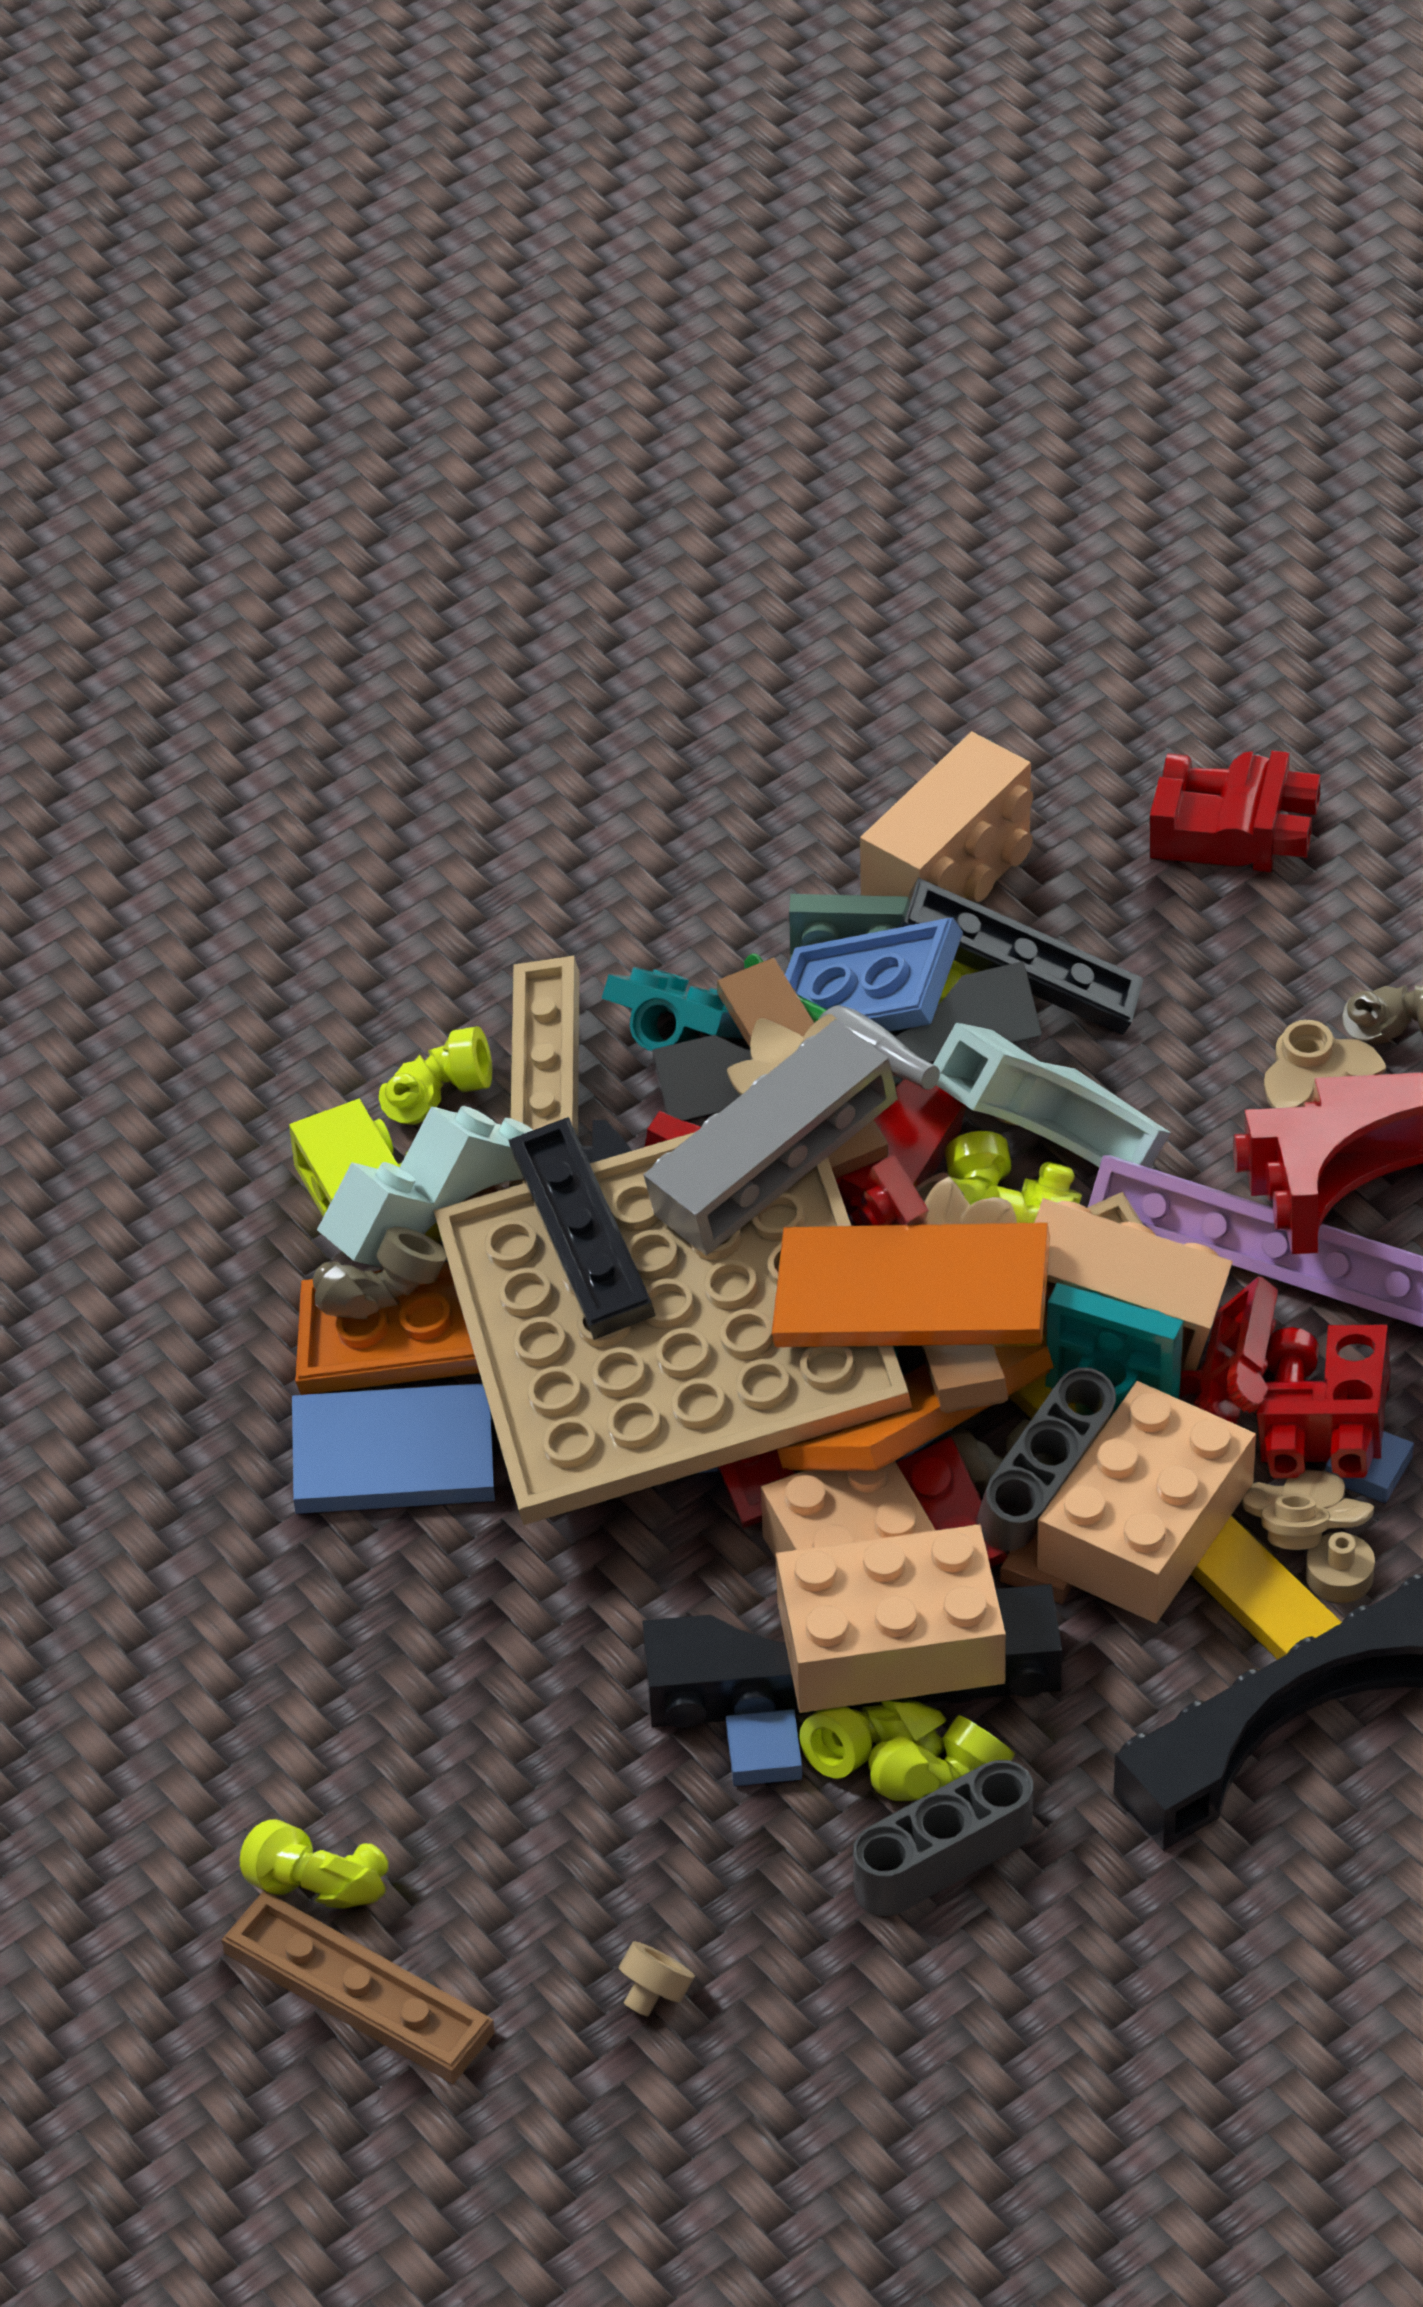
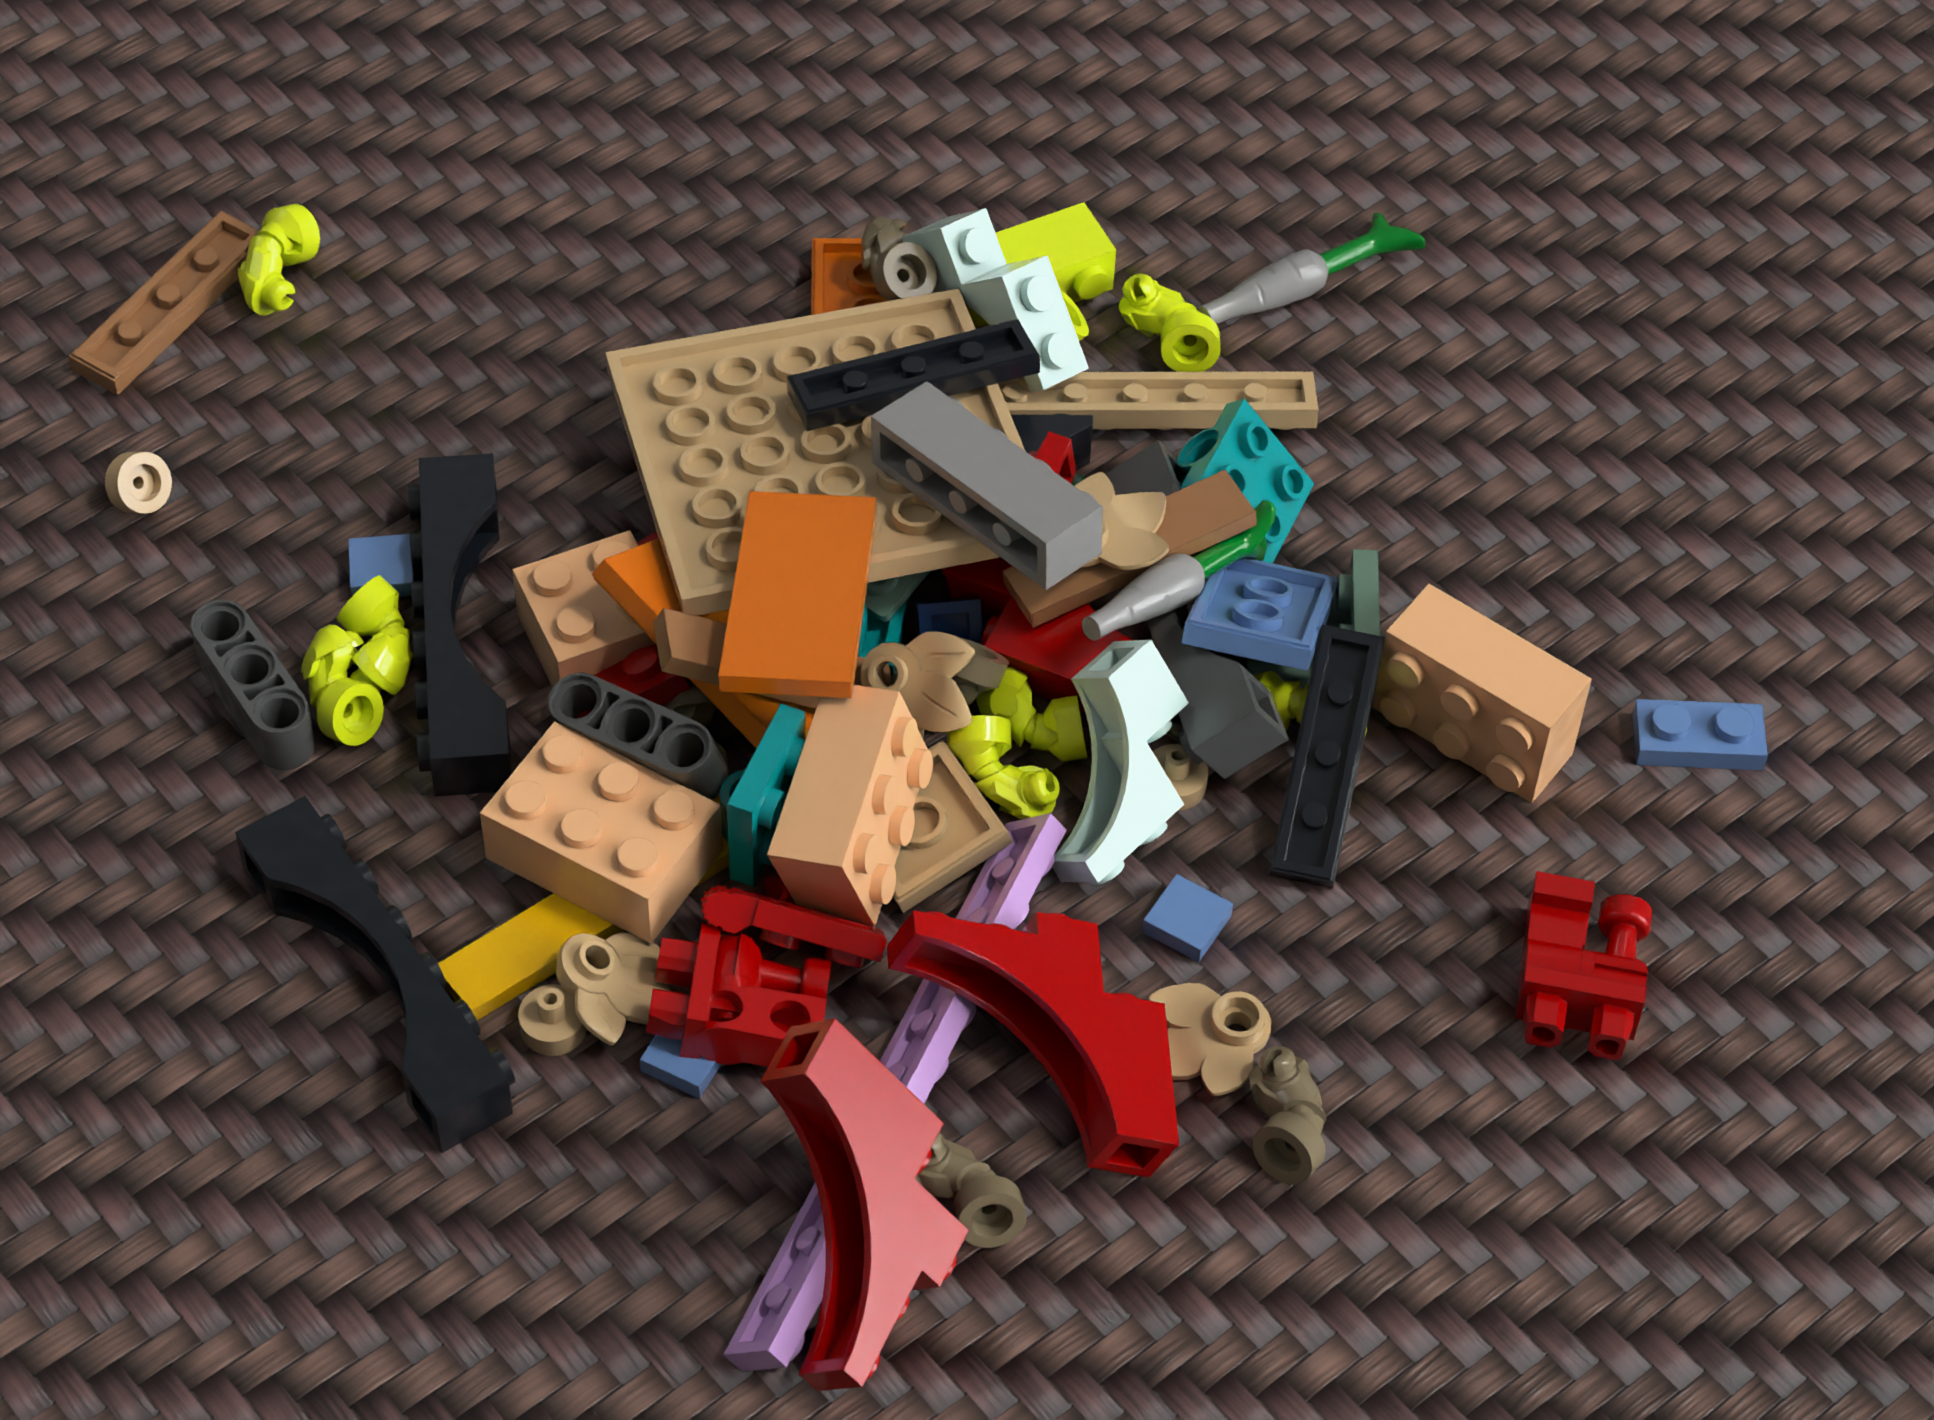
camera: 85 degrees right, 5 degrees up
(366, 970) = (1306, 272): none -> light grey piece
(392, 1448) = (735, 282): medium blue tile -> none
(889, 1198) = (922, 593): red hinge -> none
(890, 1618) = (447, 607): light nougat brick -> none
(950, 713) = (1699, 734): none -> medium blue plate
(1185, 1086) = (1187, 918): none -> medium blue tile

